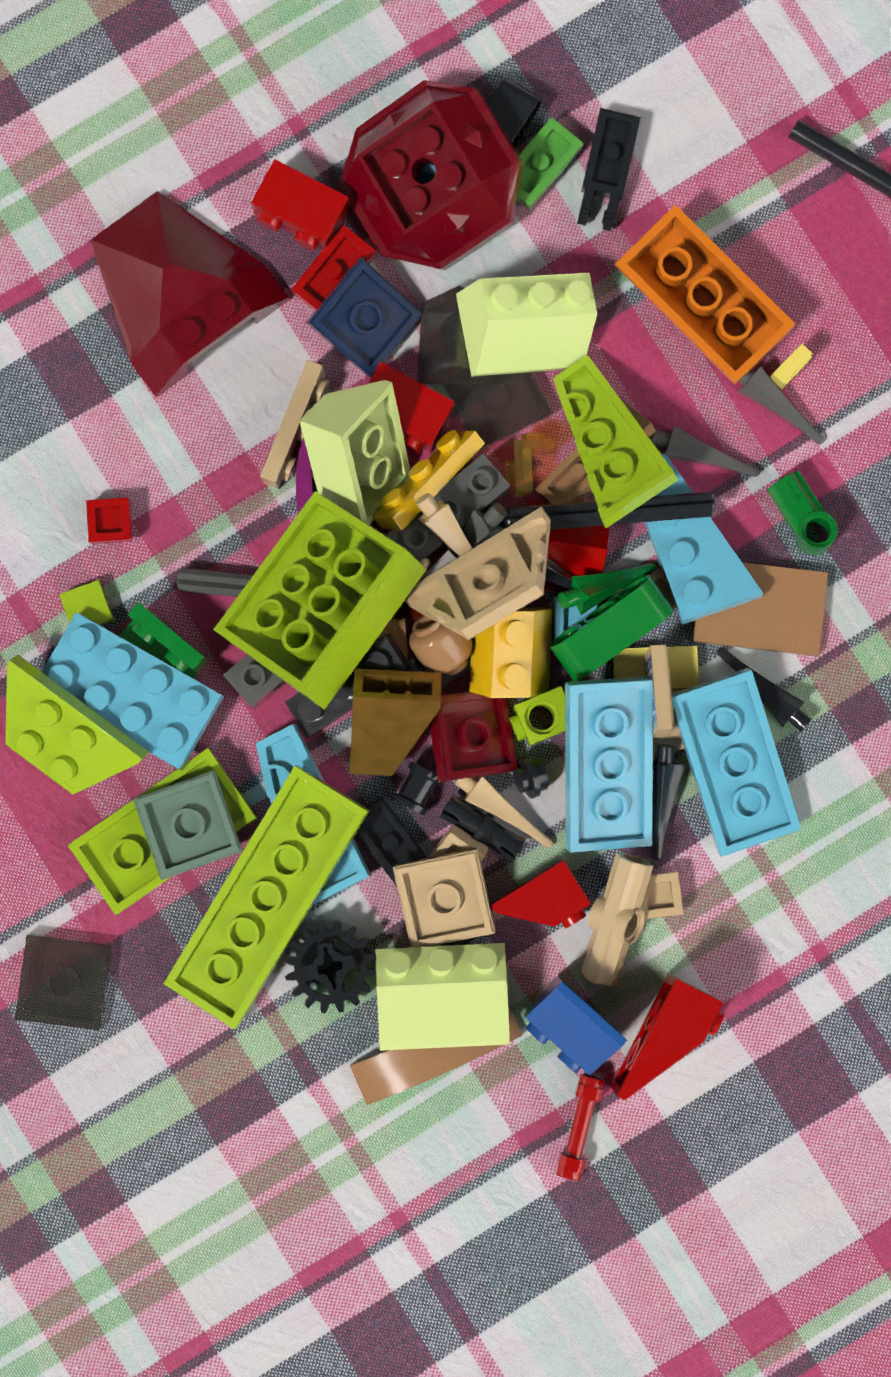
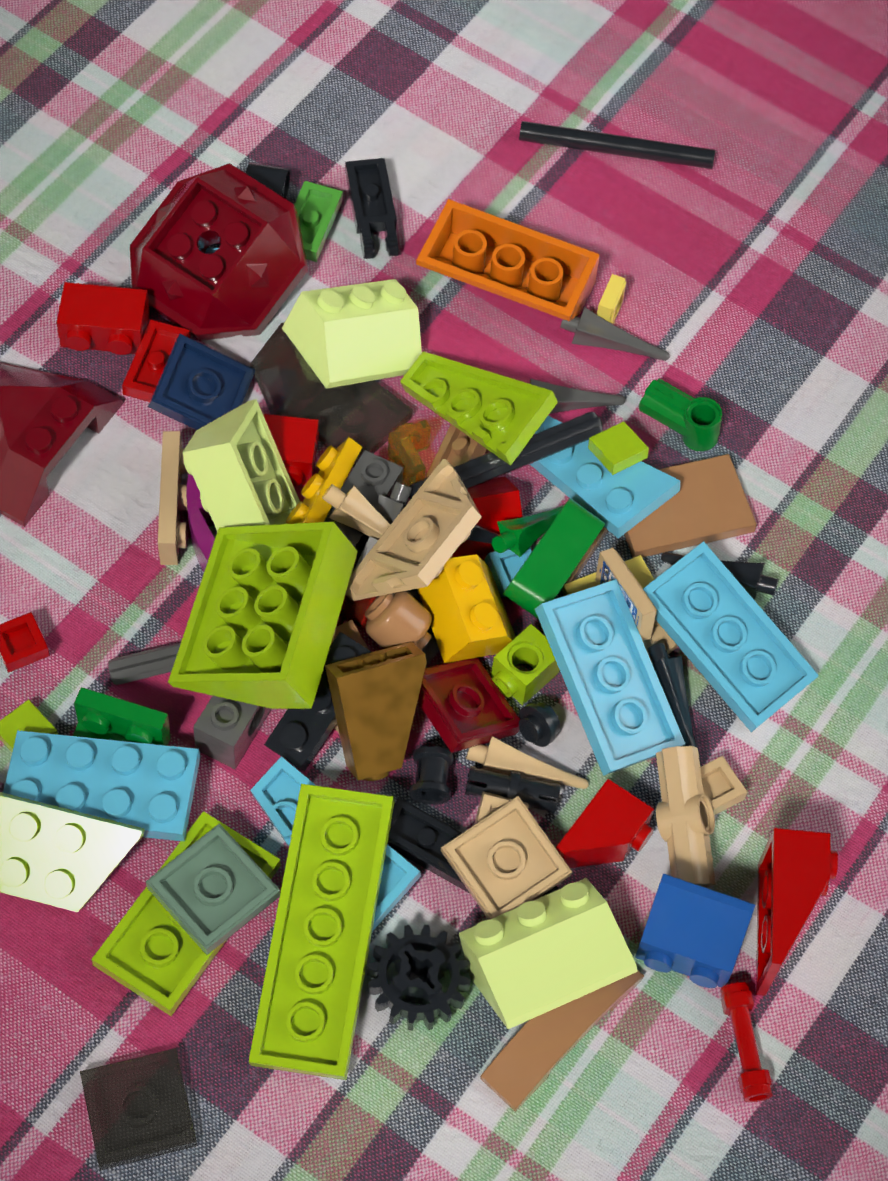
camera: 25 degrees left, 25 degrees down
(720, 537) = (618, 448): none -> lime tile

